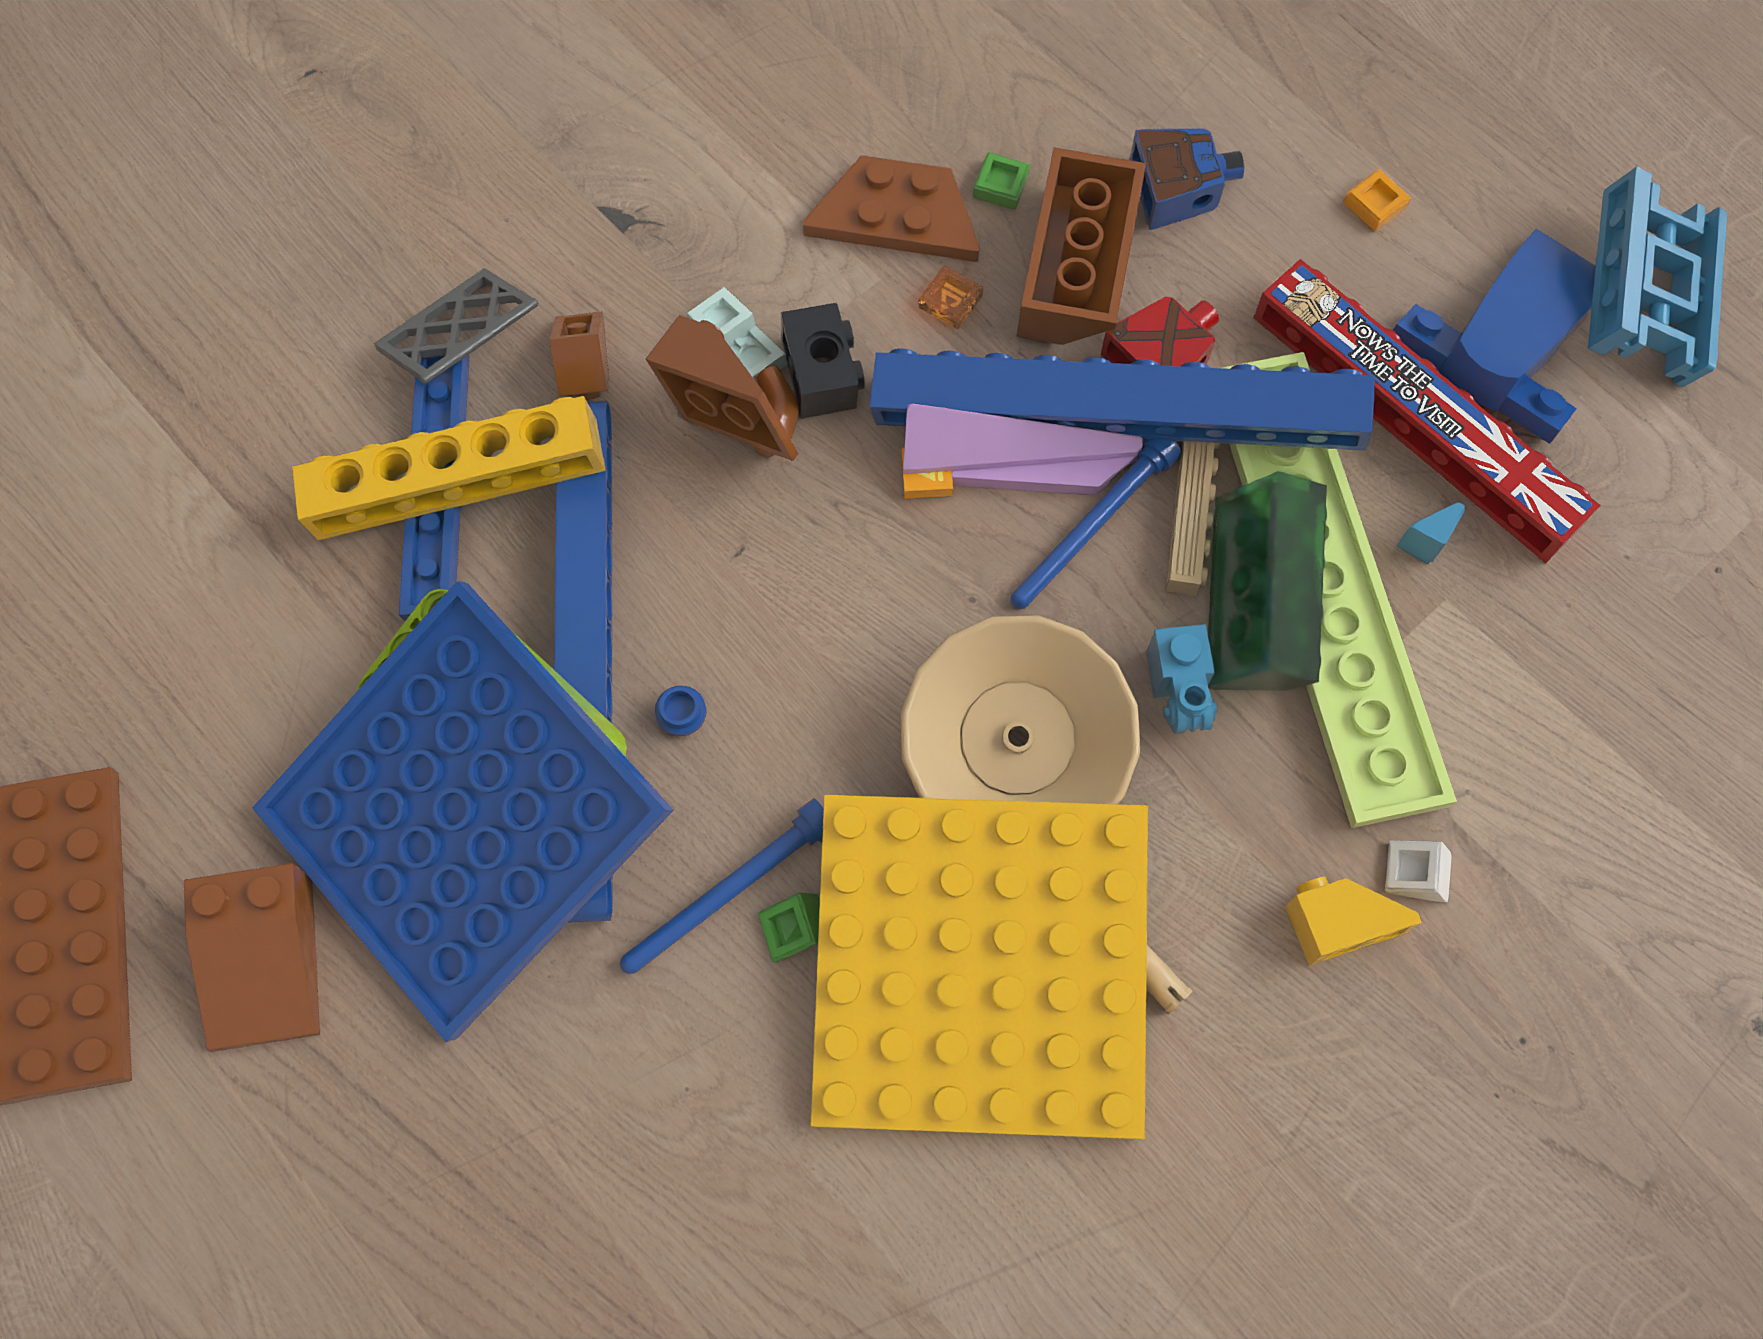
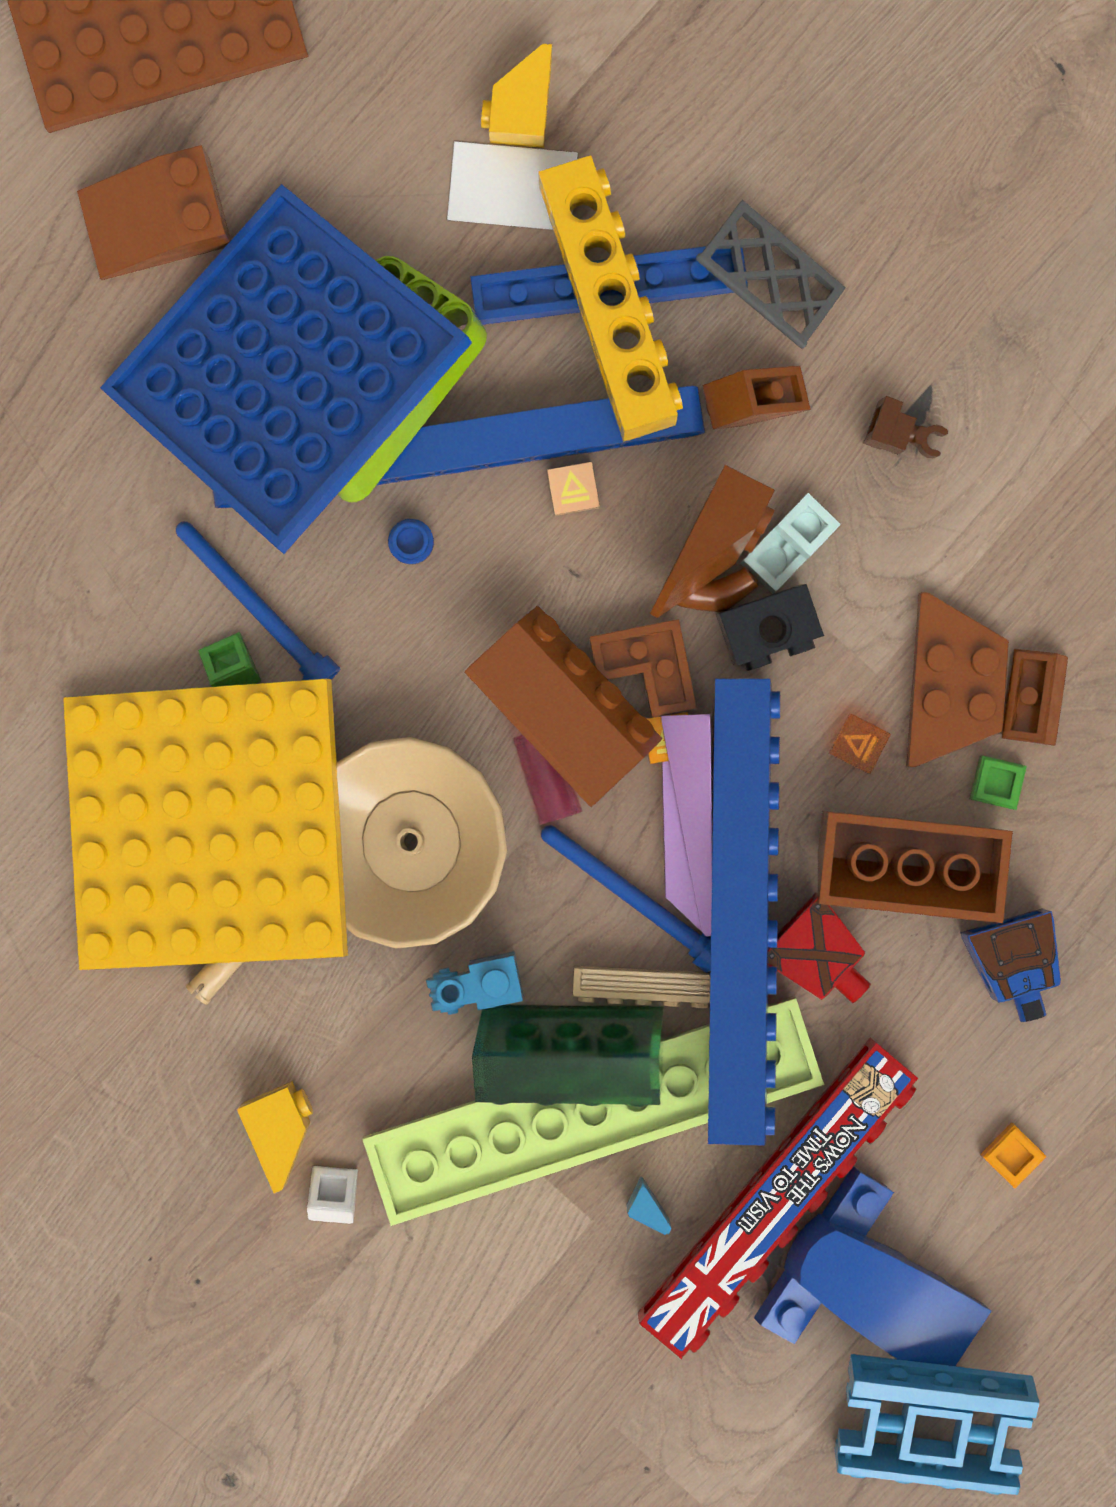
camera: 85 degrees right, 20 degrees up
(224, 545) = (520, 102): none -> yellow slope
(308, 582) = (500, 184): none -> white sticker
(636, 231) = (893, 430): none -> reddish brown piece
(648, 540) = (573, 488): none -> light nougat tile
(840, 469) = (658, 654): none -> dark orange plate
(880, 553) = (563, 705): none -> dark orange slope
(919, 141) = (1035, 697): none -> dark orange slope
(955, 589) = (548, 789): none -> clear pink pin

